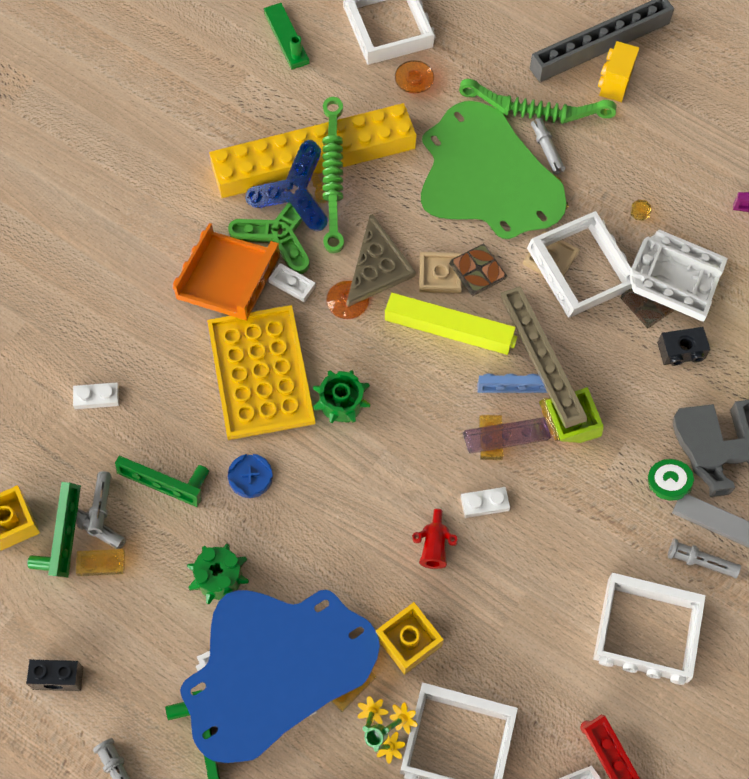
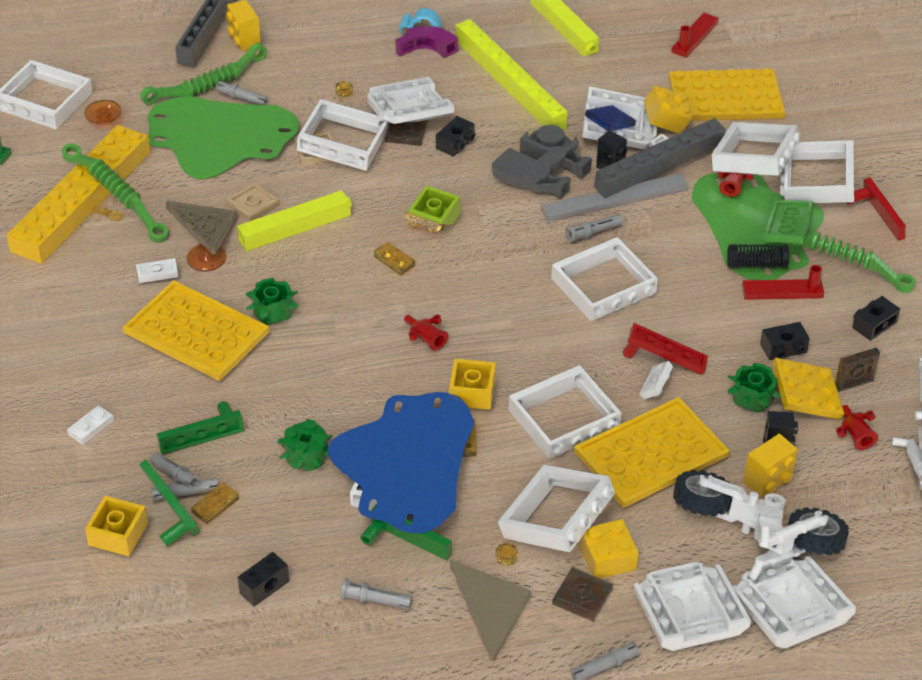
camera: 45 degrees left, 20 degrees down
(226, 273) = (104, 294): orange panel -> none
(250, 475) = (259, 388): blue tile -> none
(289, 246) = (105, 253): bright green piece -> none
(300, 176) = (93, 204): clear blue piece -> none
(377, 735) = (517, 429): yellow plant -> none
(478, 269) = (277, 182): tile -> none
(485, 502) = (431, 293): white plate -> none
(506, 435) = (404, 247): tile -> none
(510, 384) = (379, 219): medium blue plate -> none
(543, 358) = (379, 190): dark tan plate -> none
(670, 479) = (528, 203): green tile -> none

